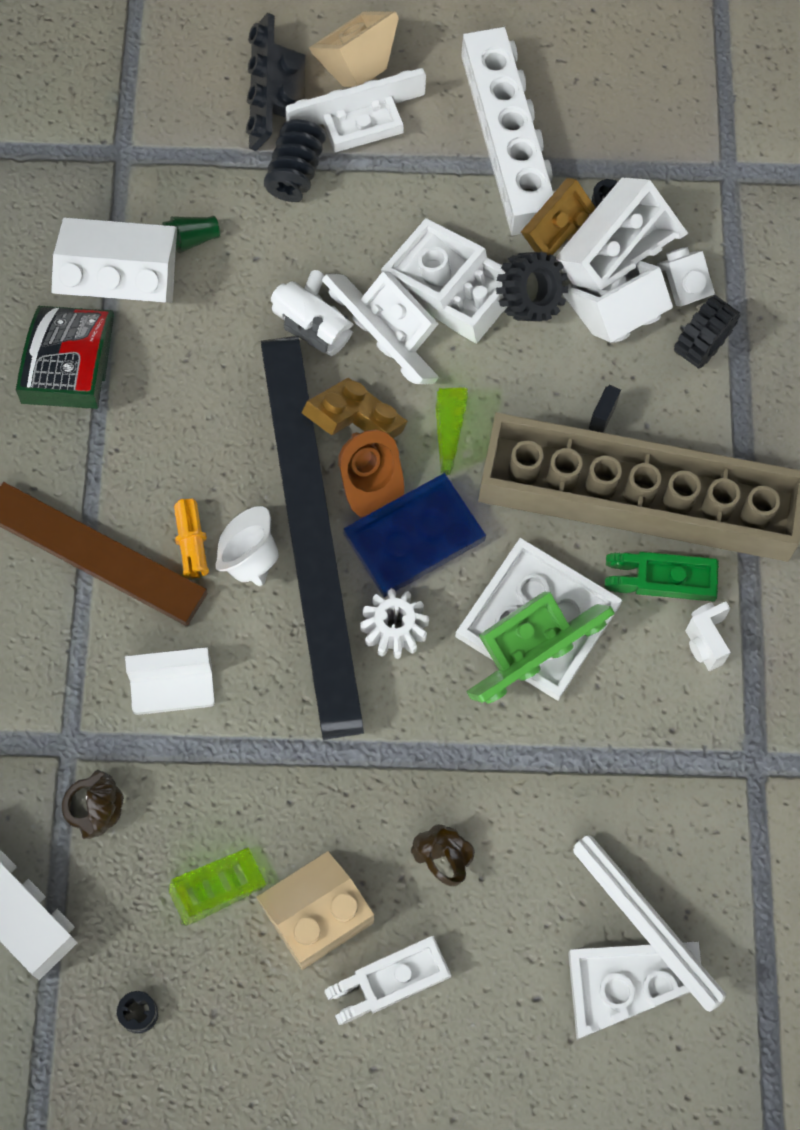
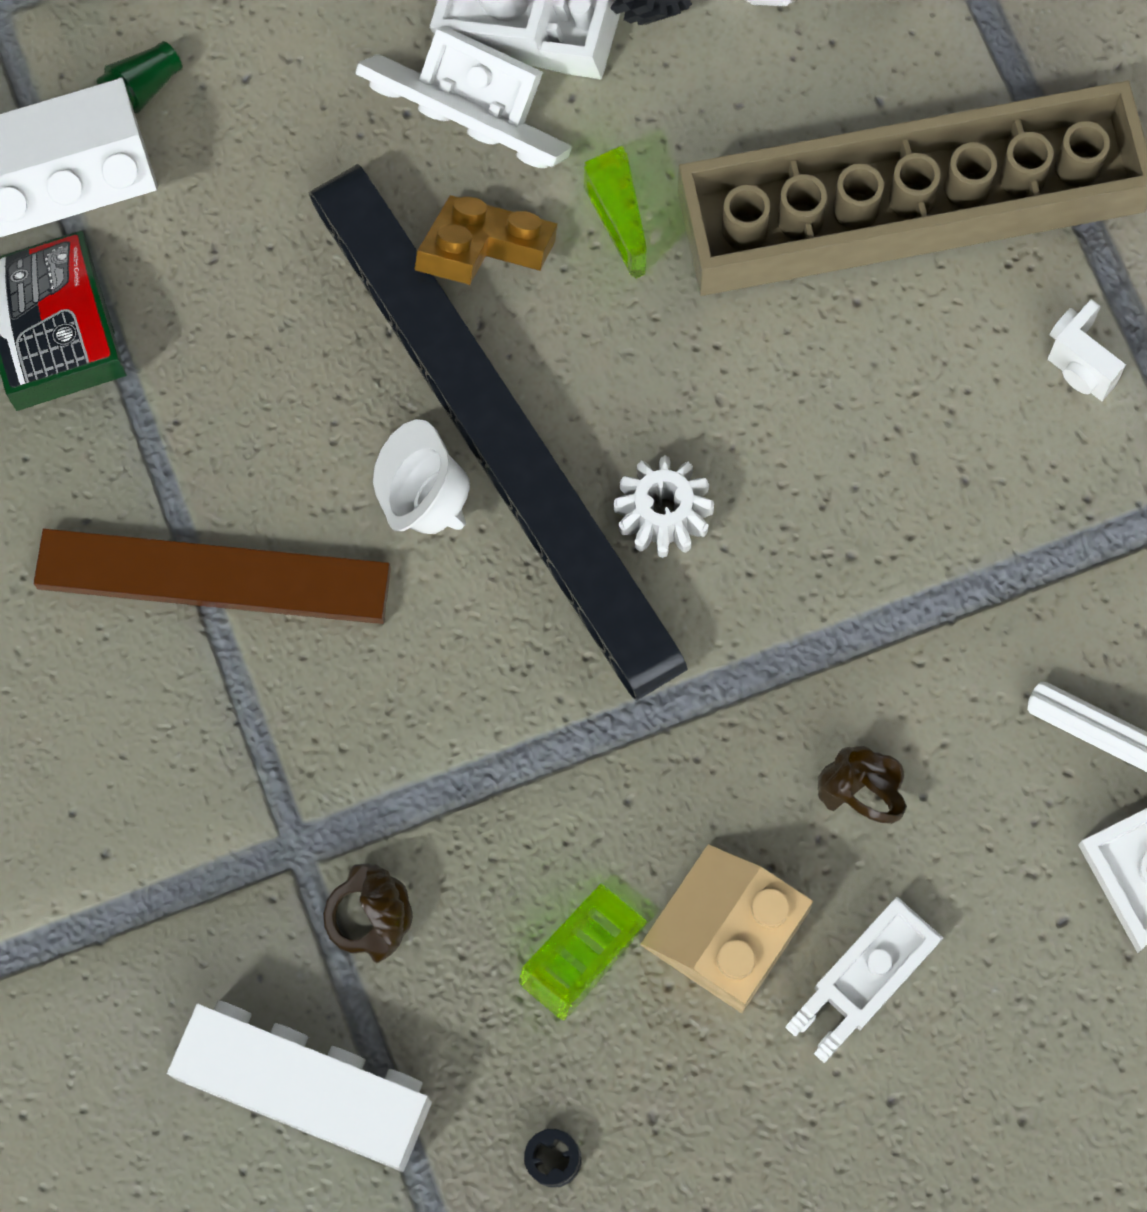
camera: 15 degrees left, 5 degrees up
(170, 681) = (397, 706): white panel -> none
(190, 538) = (336, 502): light orange axle -> none
(310, 316) = (361, 130): white piece -> none
(371, 471) = (544, 315): dark orange piece -> none
(414, 534) = (636, 375): clear blue plate -> none
(520, 579) = (851, 422): white plate -> none
(530, 638) = (858, 453): bright green bracket -> none
(604, 409) = (817, 102): black tile -> none
(665, 575) = (993, 296): green hinge -> none

